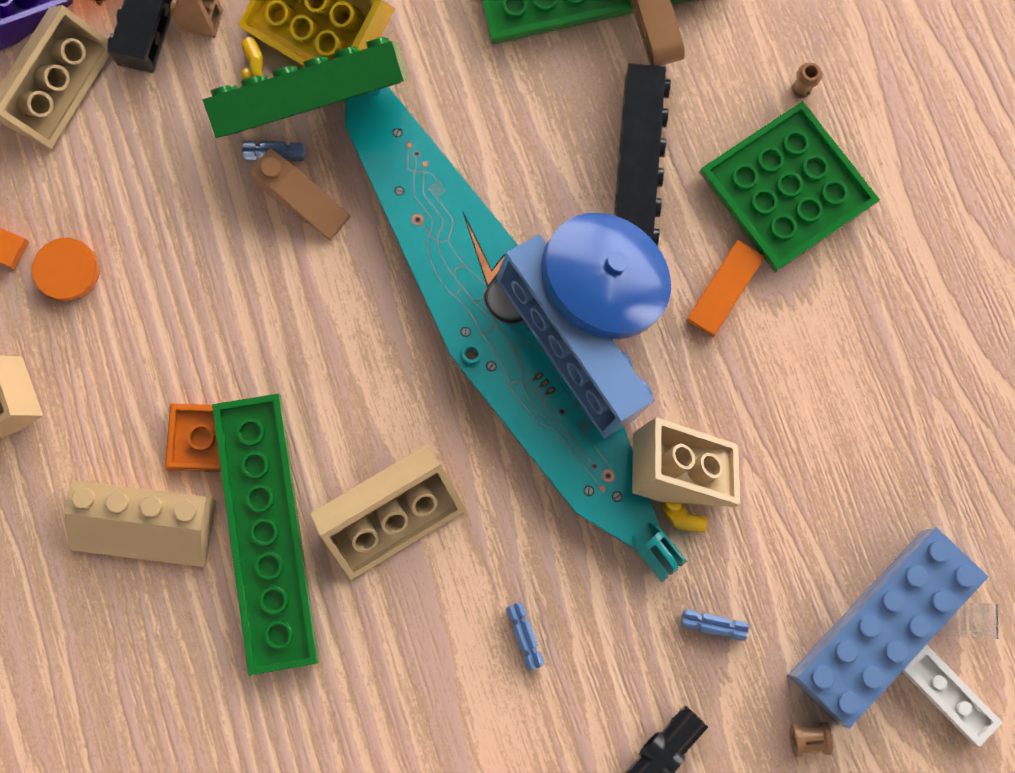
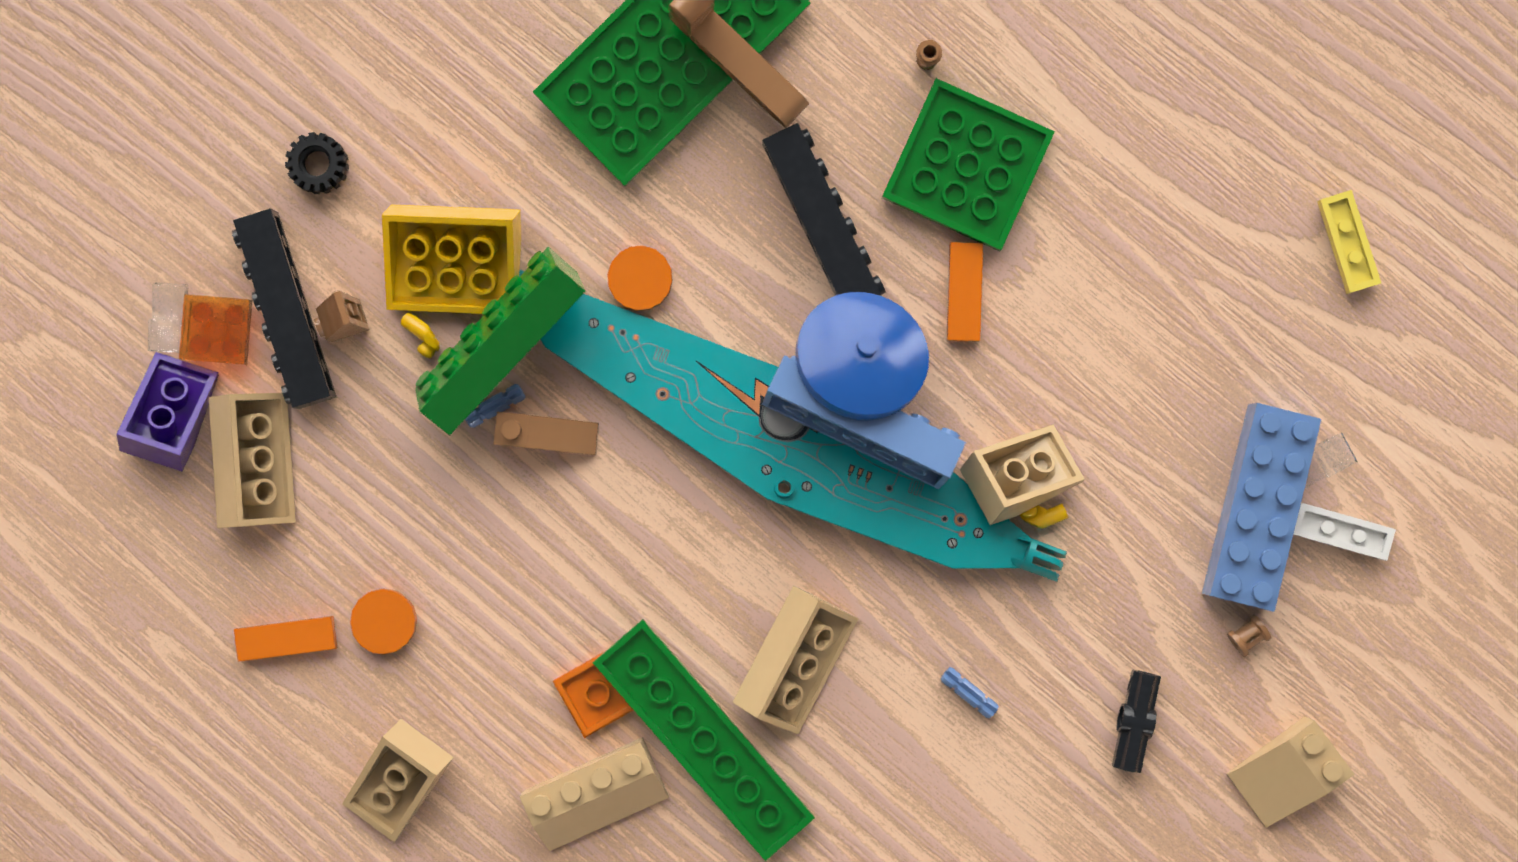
camera: 25 degrees left, 10 degrees up
(458, 120) = (640, 278): none -> orange tile
(714, 625) = (1119, 589): medium blue axle -> none

